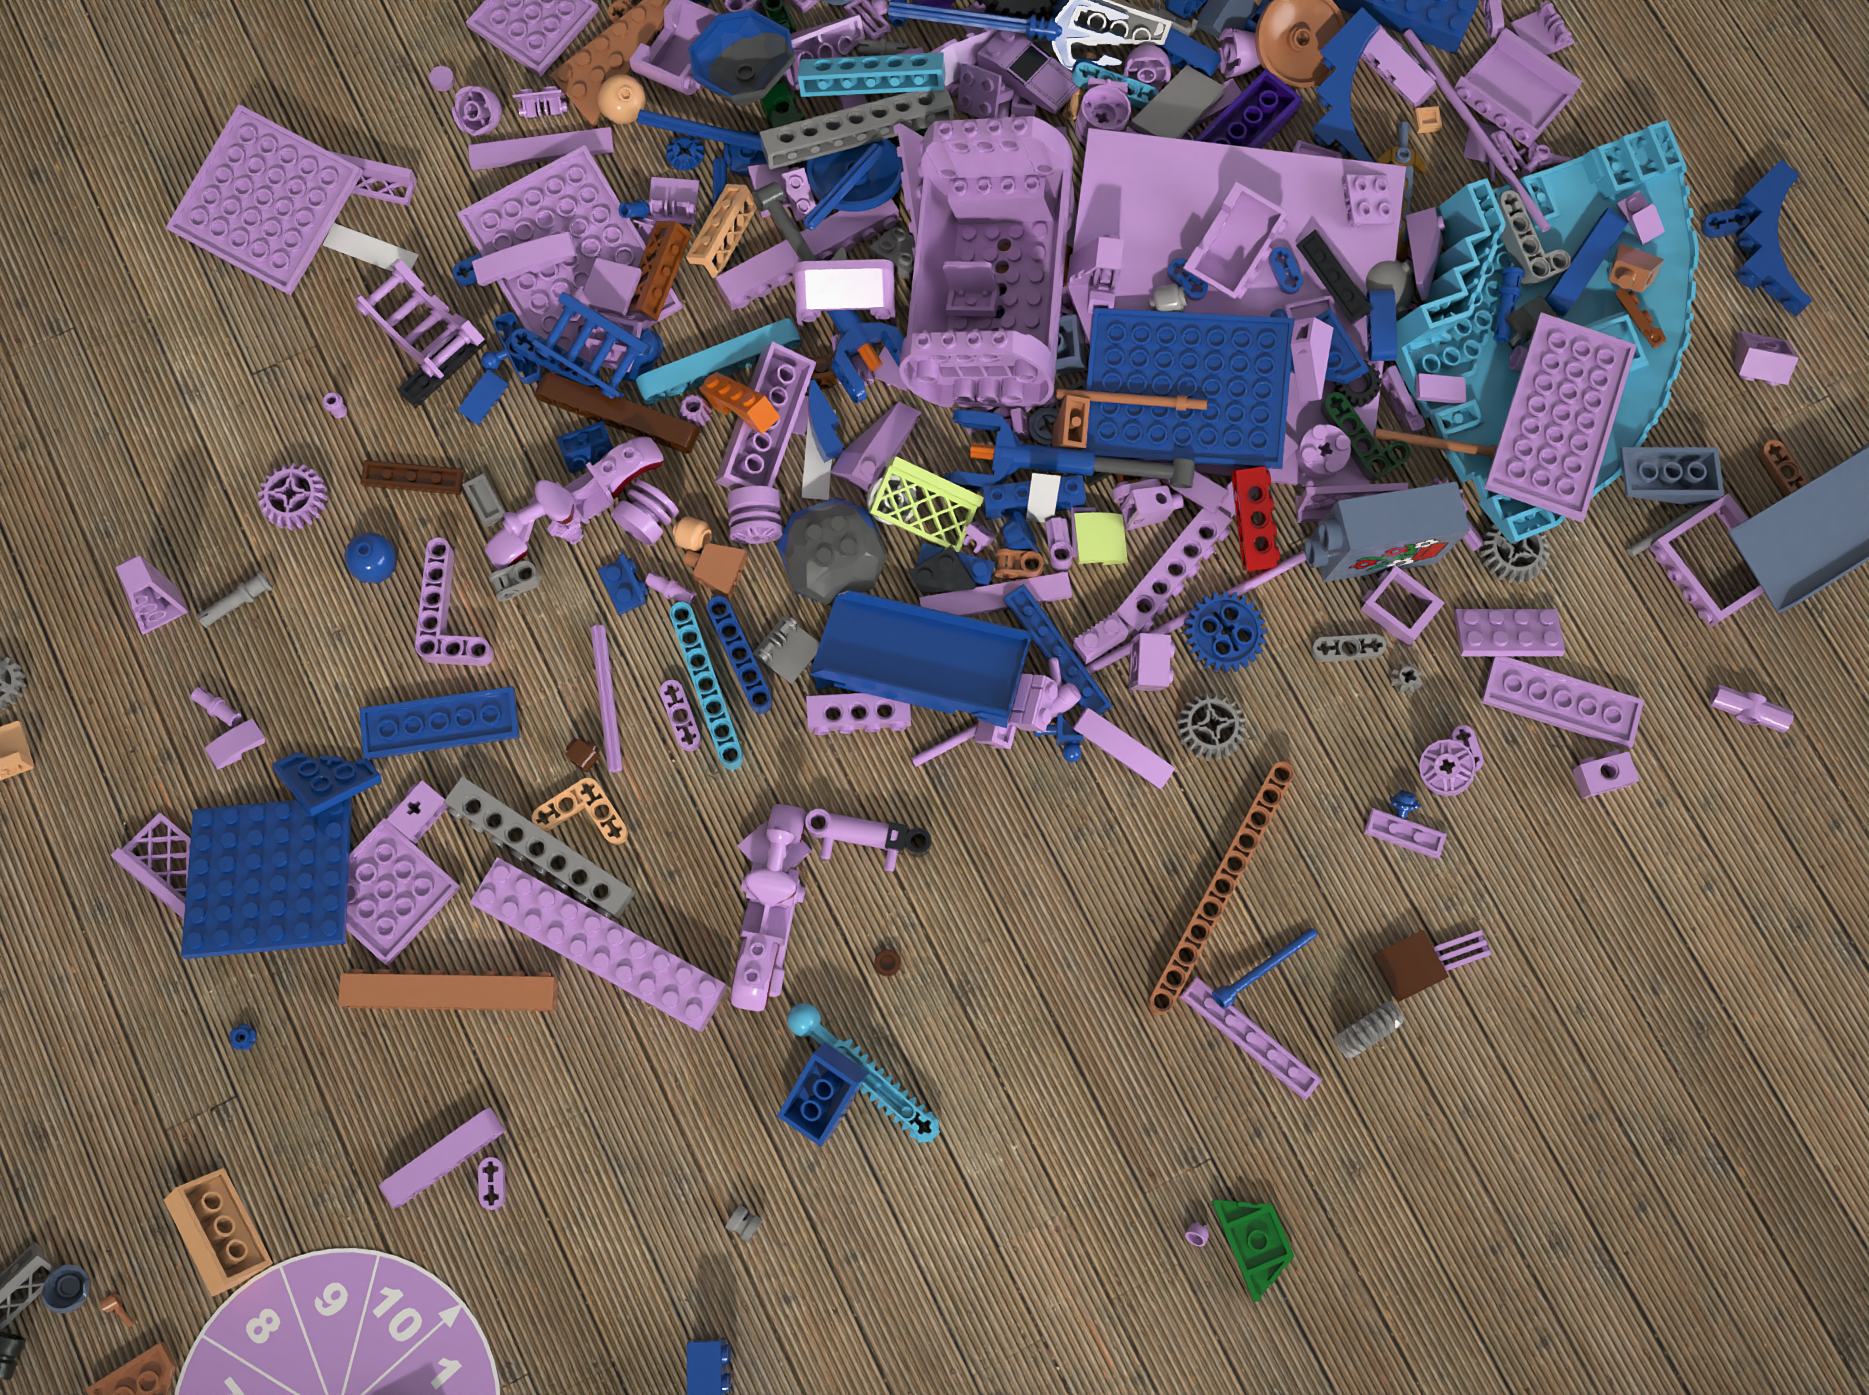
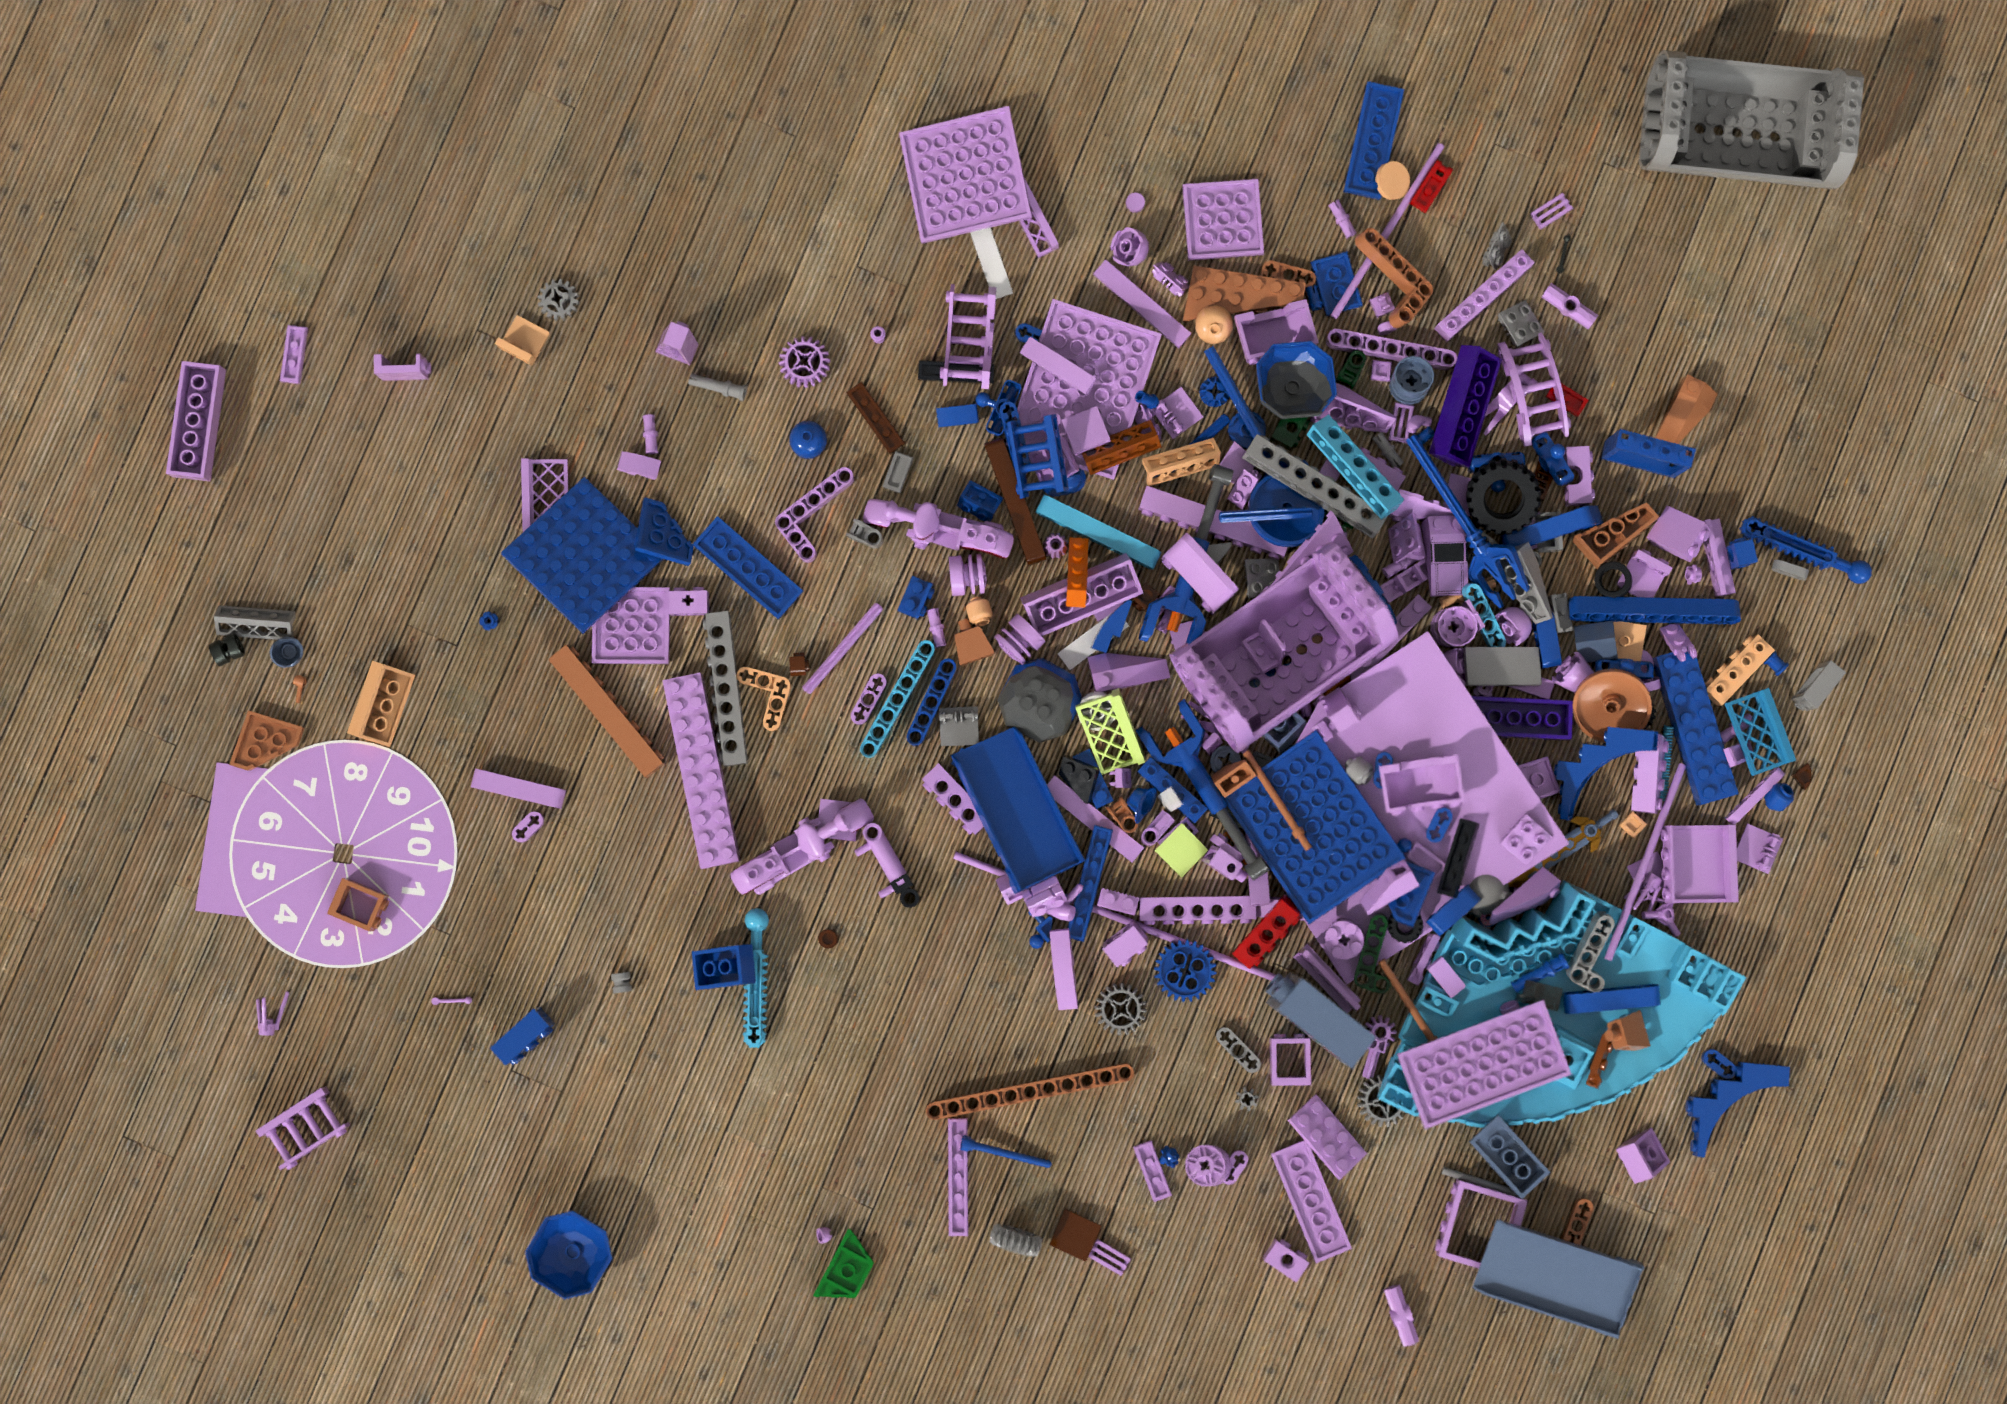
camera: 55 degrees right, 10 degrees up
(1642, 217) = (1670, 1010): lavender slope -> none

